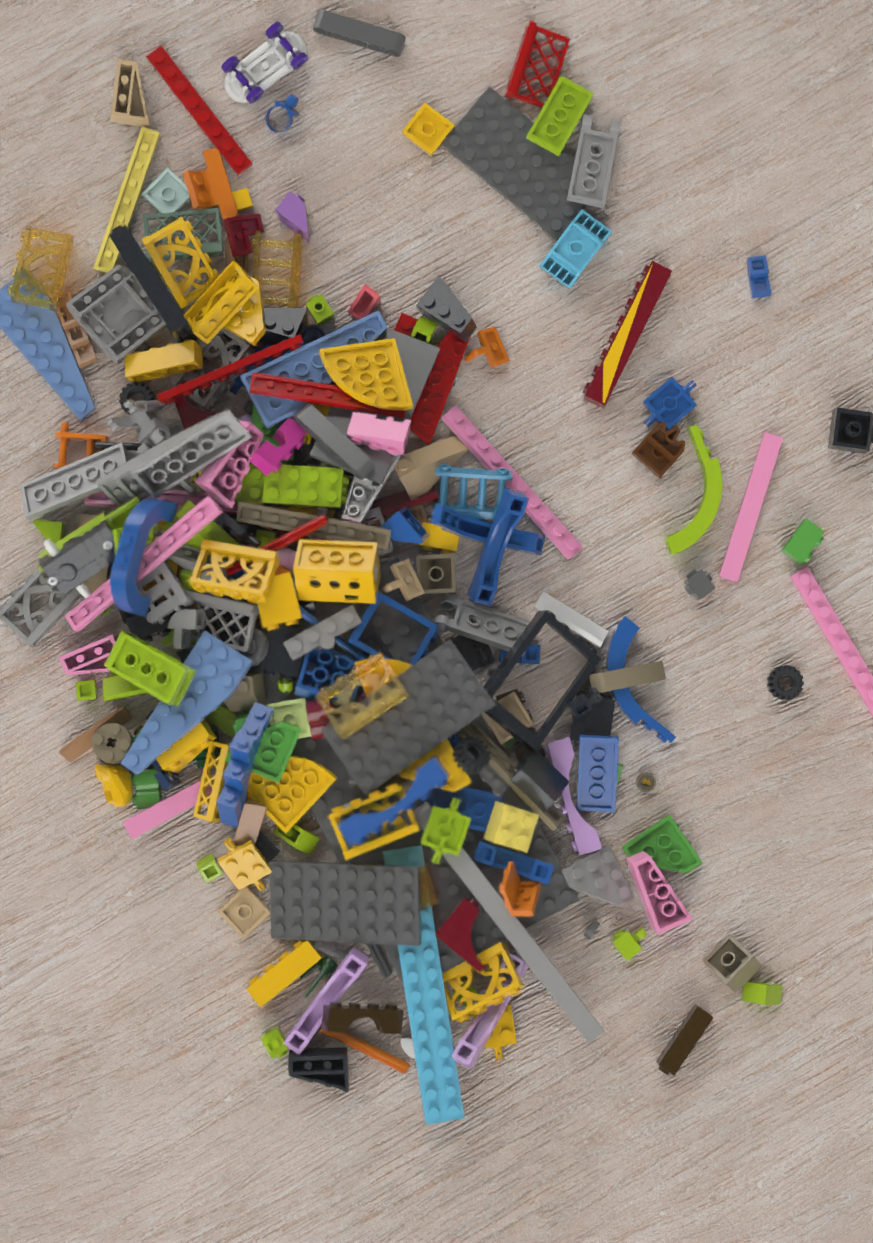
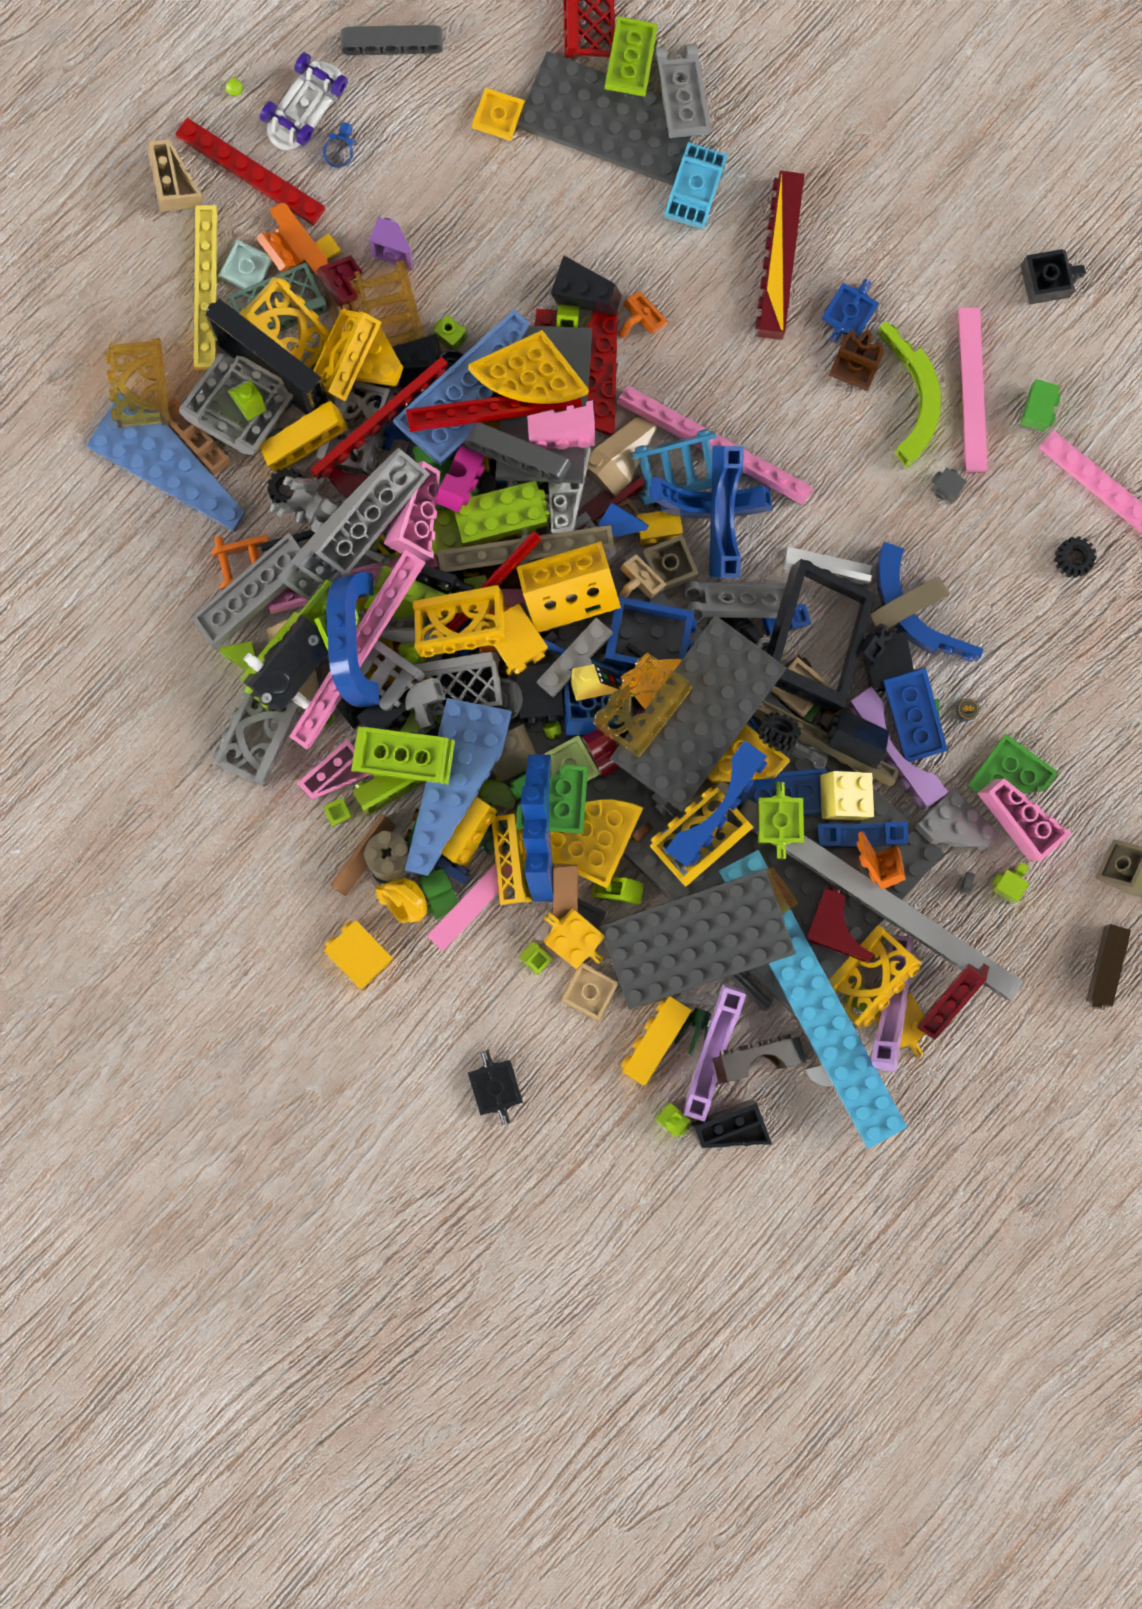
camera: 20 degrees left, 5 degrees down
(62, 815) = (357, 954): none -> yellow brick
(126, 313) = (247, 399): none -> lime slope
(138, 965) = (495, 1087): none -> black plate
(210, 31) = (234, 87): none -> lime hinge
(330, 797) = (642, 831): none -> reddish brown tile
(331, 659) = (592, 682): none -> light yellow slope
(364, 303) = (495, 309): coral slope -> none
(370, 1050) = (771, 1092): orange axle -> none
(540, 1027) = (953, 1000): none -> dark red fence
(758, 276) = (893, 154): blue slope -> none

